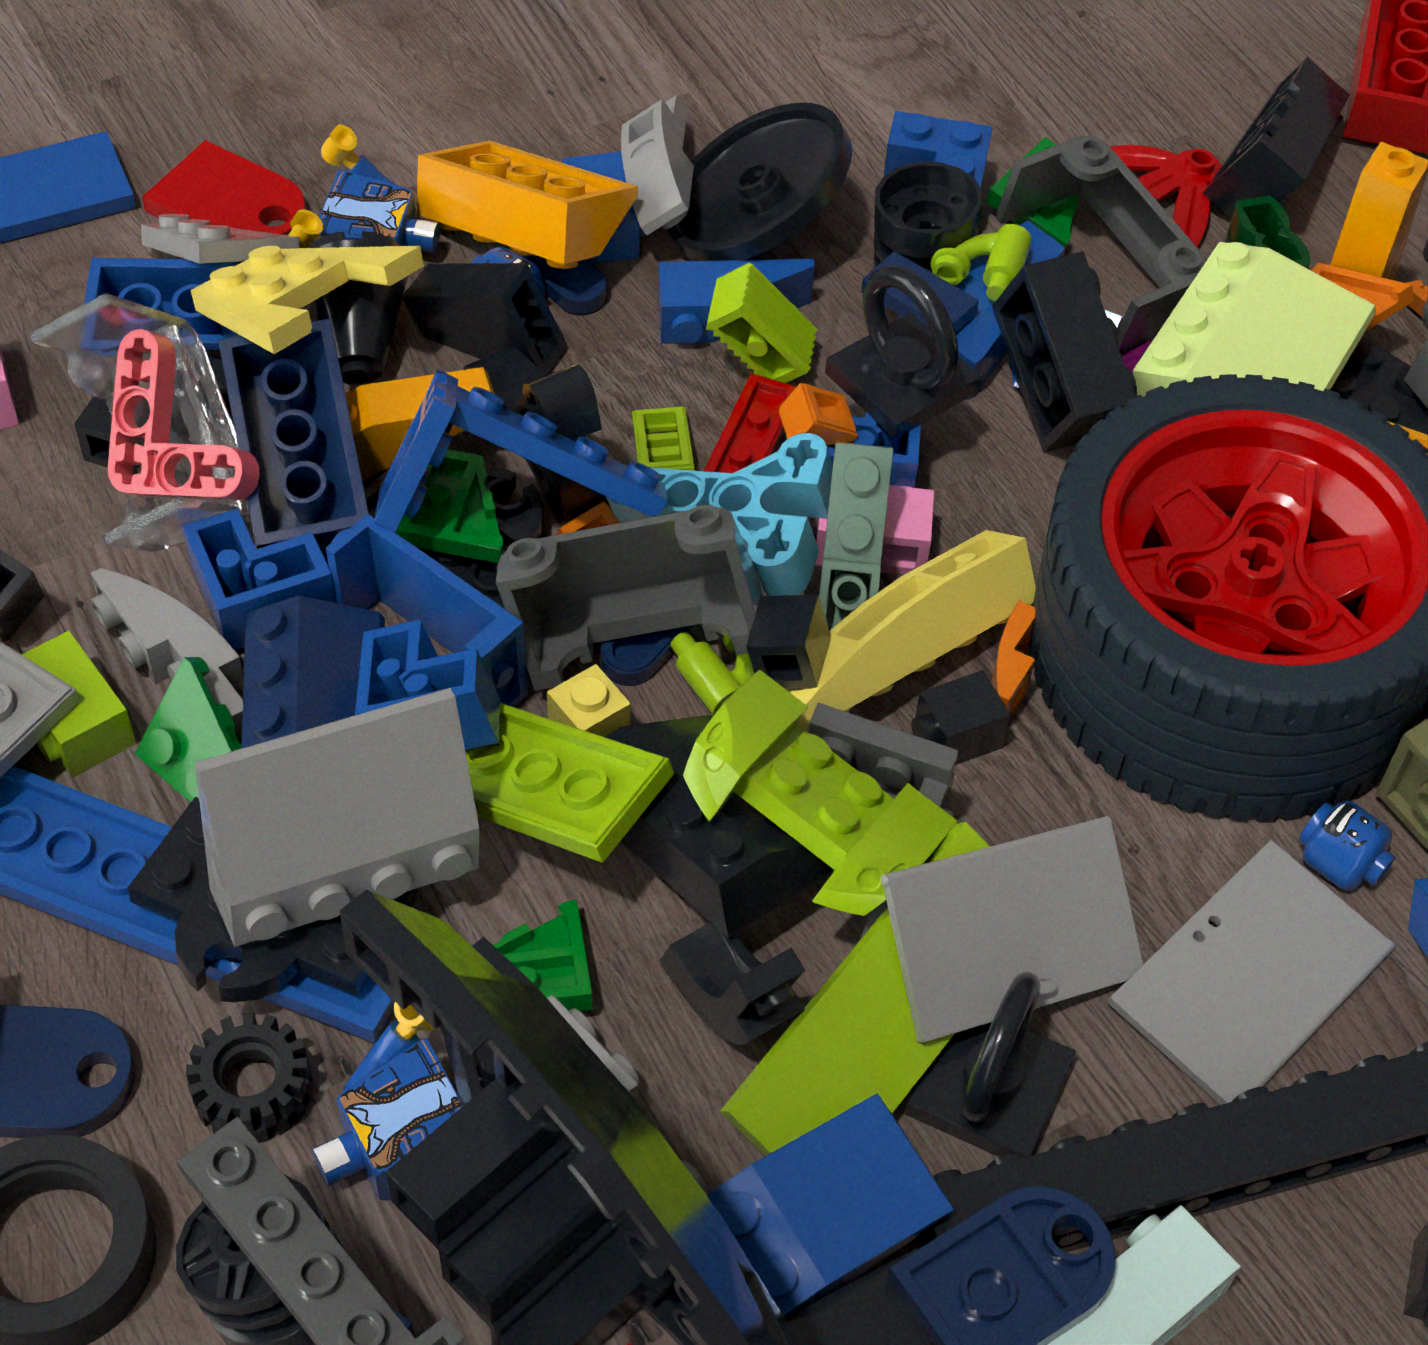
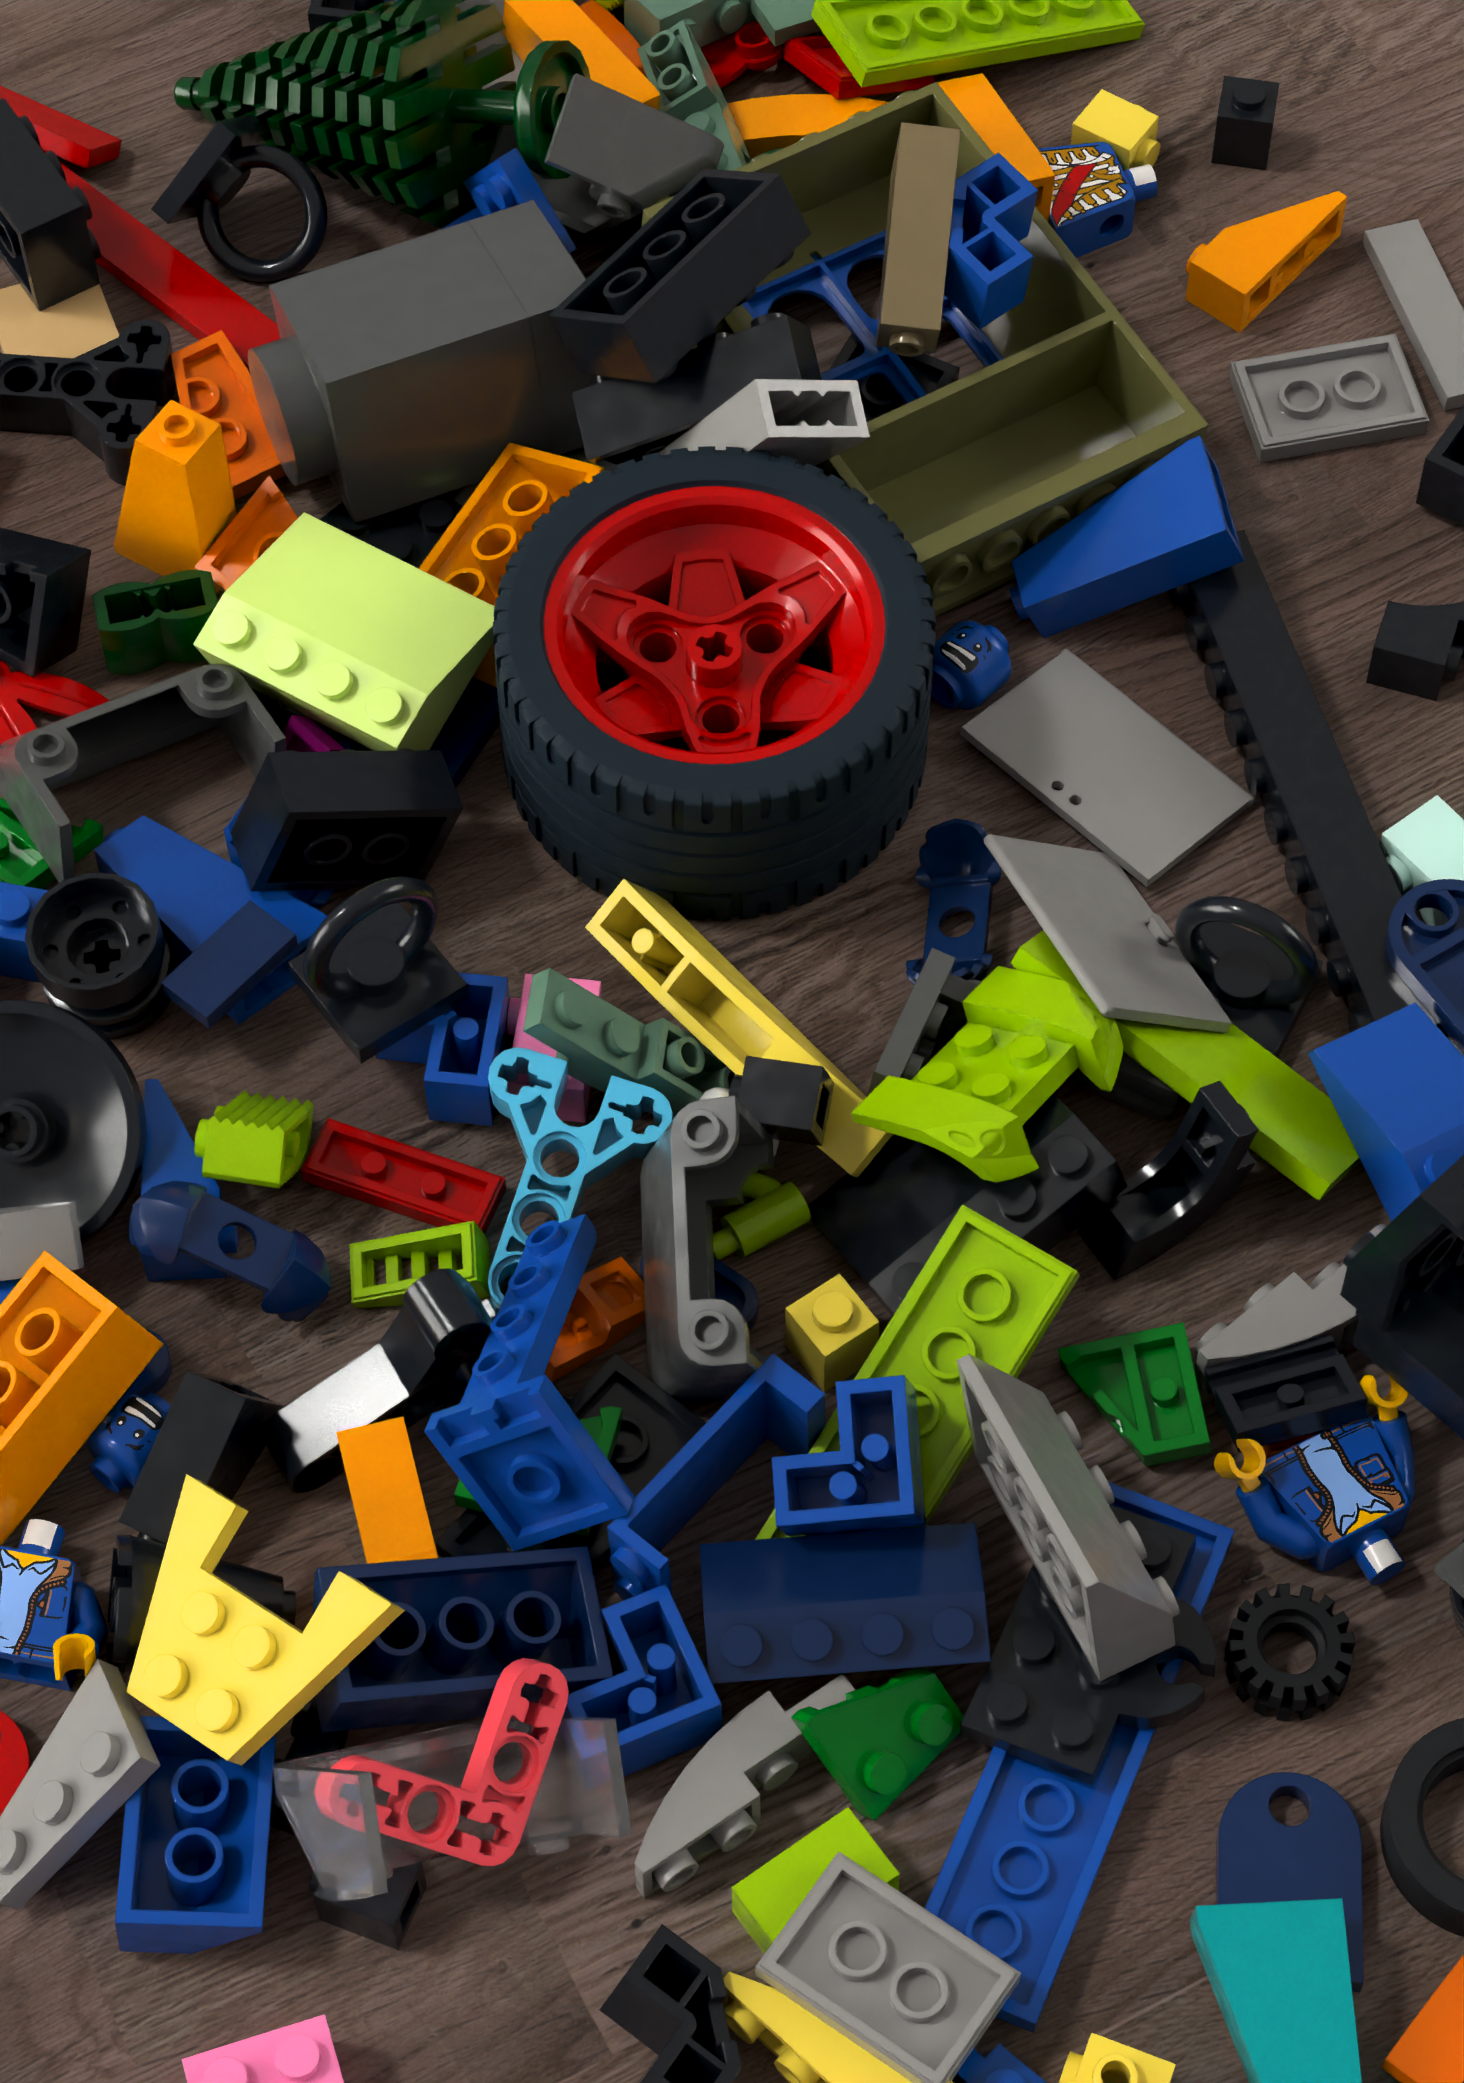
camera: 85 degrees left, 5 degrees up
(646, 353) = (188, 1221): none -> dark blue piece
(818, 413) = (444, 1071): orange slope -> none
(963, 716) = (823, 980): black brick -> none
(1002, 824) = (959, 878): none -> dark blue piece
(1006, 252) = (185, 869): lime plant -> none
(1012, 665) = (765, 936): orange slope -> none

